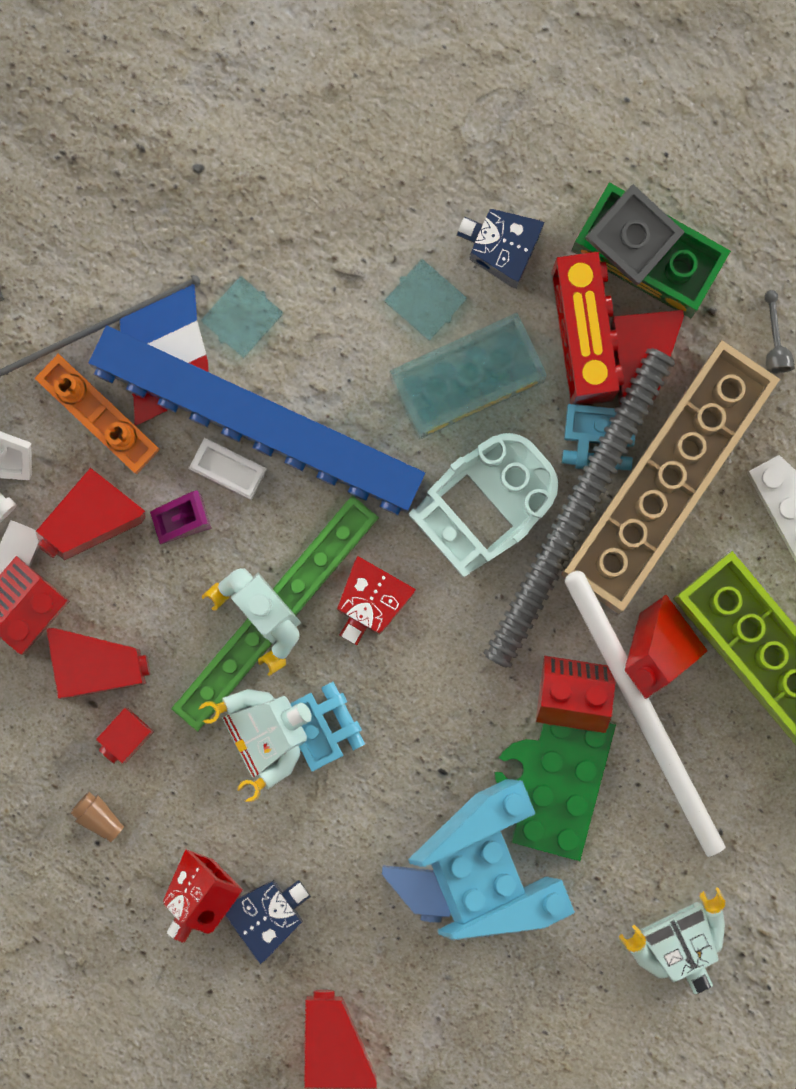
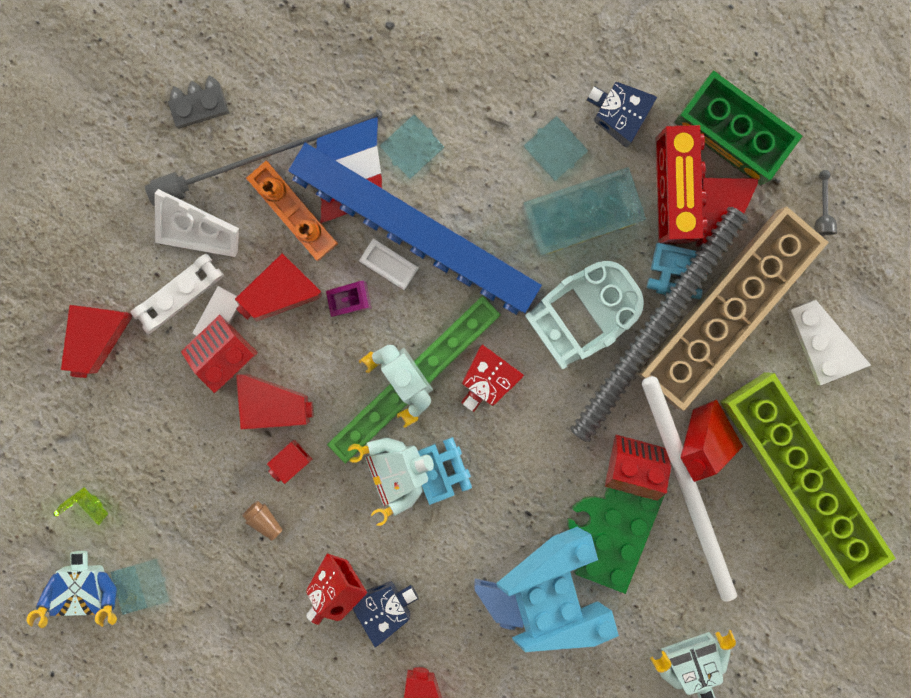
camera: 10 degrees right, 5 degrees up
(634, 234) = (729, 114): dark grey plate -> none

